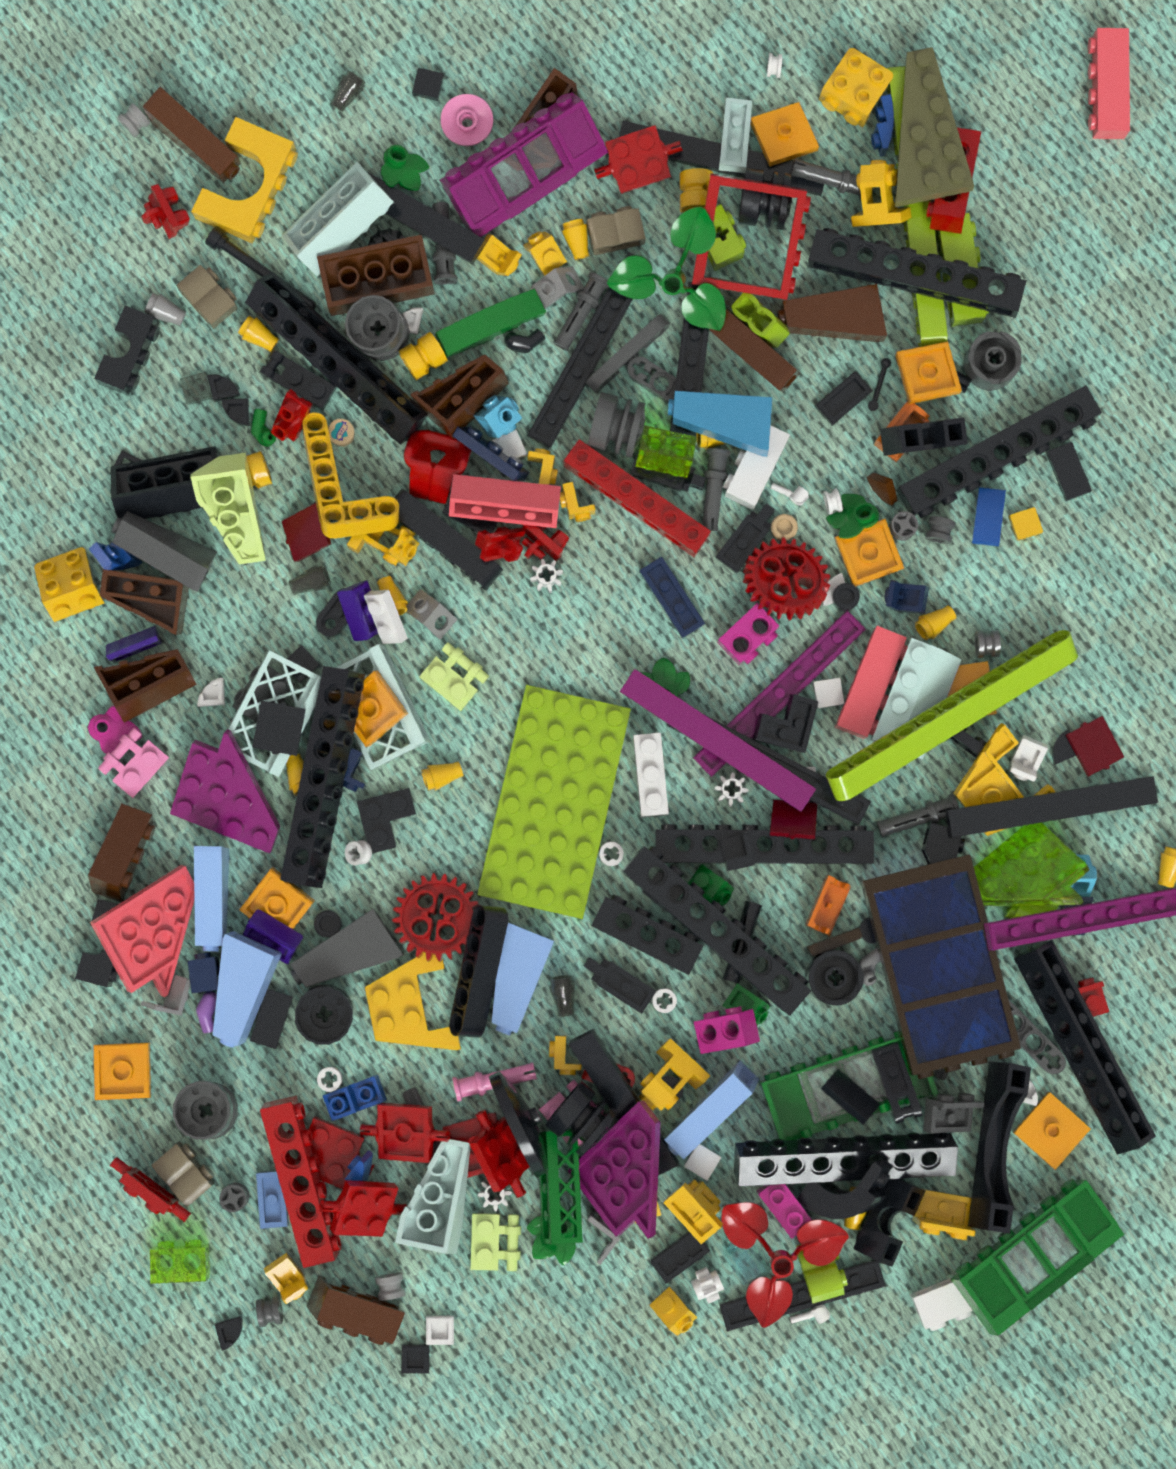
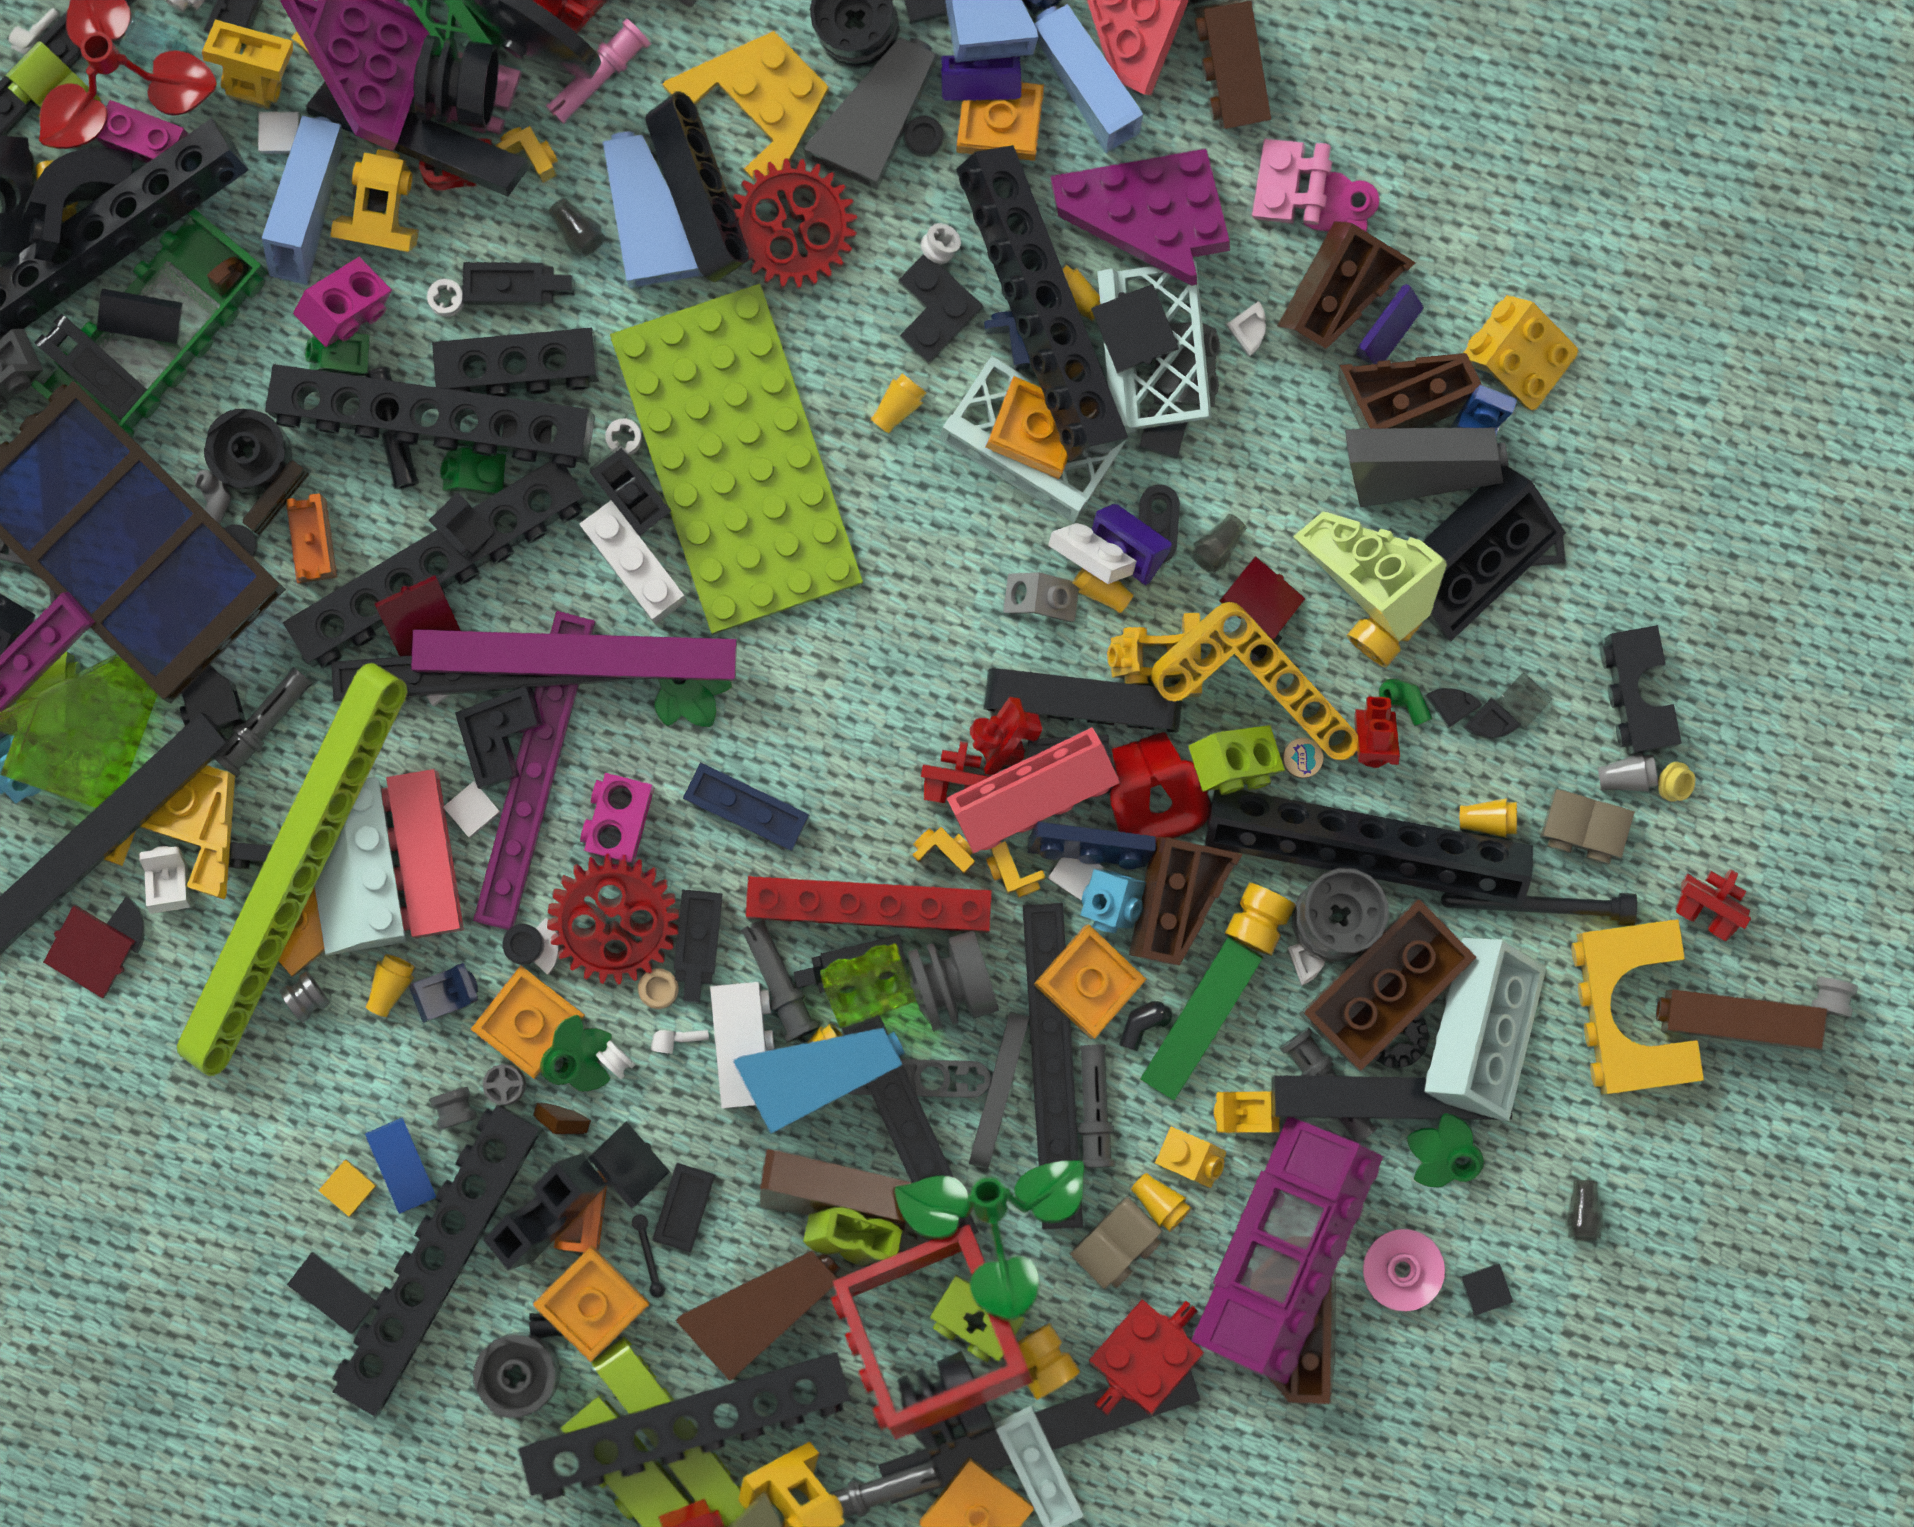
camera: 150 degrees right, 0 degrees up
(141, 289) = (1676, 782): none -> light yellow plate
(299, 379) = (1400, 791): black plate -> none
(379, 448) = (1236, 759): none -> lime brick
(448, 682) = (960, 524): yellowish green plate -> none
(539, 381) = (1090, 981): none -> light orange plate
(551, 570) = (923, 746): white gear -> none
(556, 285) = (1147, 1120): light grey bracket -> none
(627, 816) = (630, 489): none -> black brick
(737, 784) = (531, 610): white gear -> none
(783, 1091) = (226, 275): none -> reddish brown tile
(860, 436) = (628, 1164): none -> black piece

